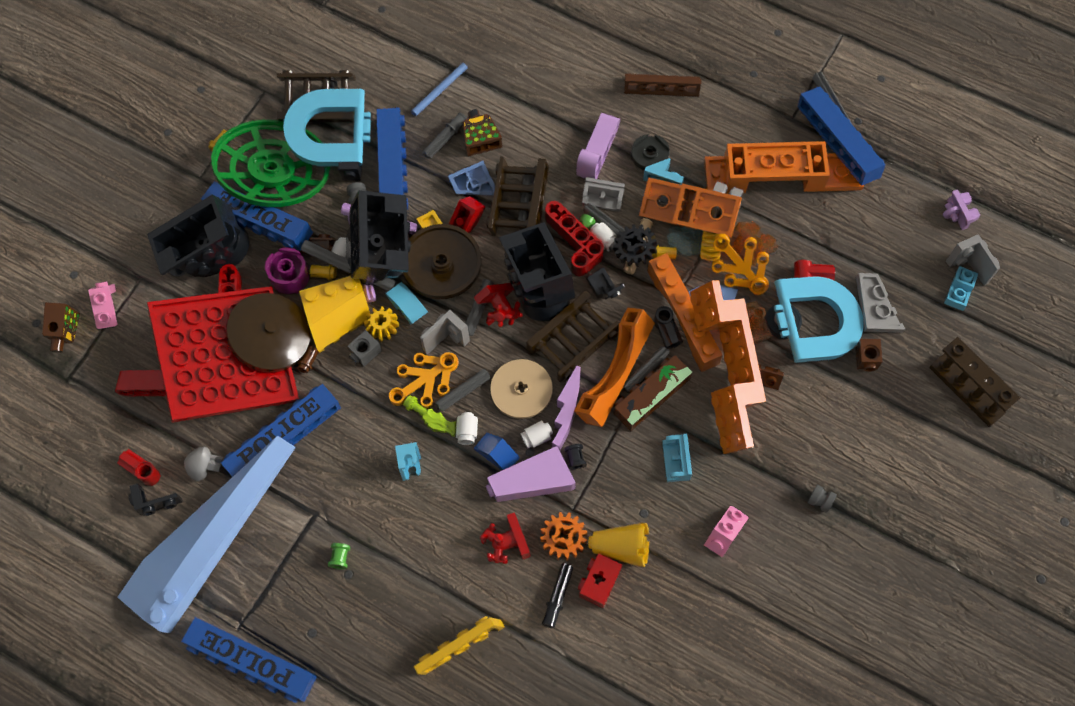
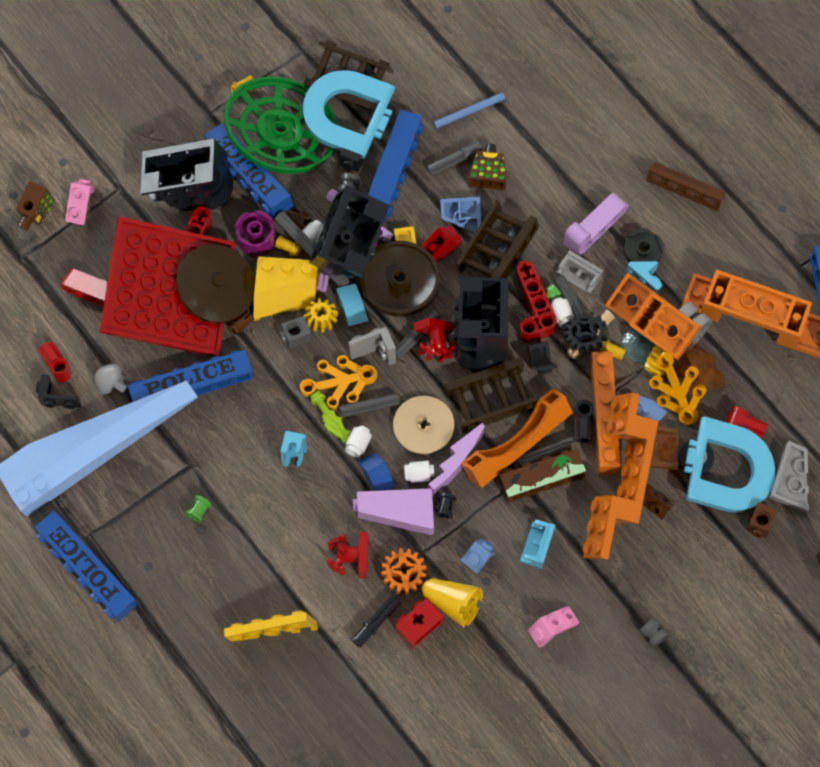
camera: 20 degrees right, 0 degrees up
(627, 491) = (479, 555): none -> medium blue bracket

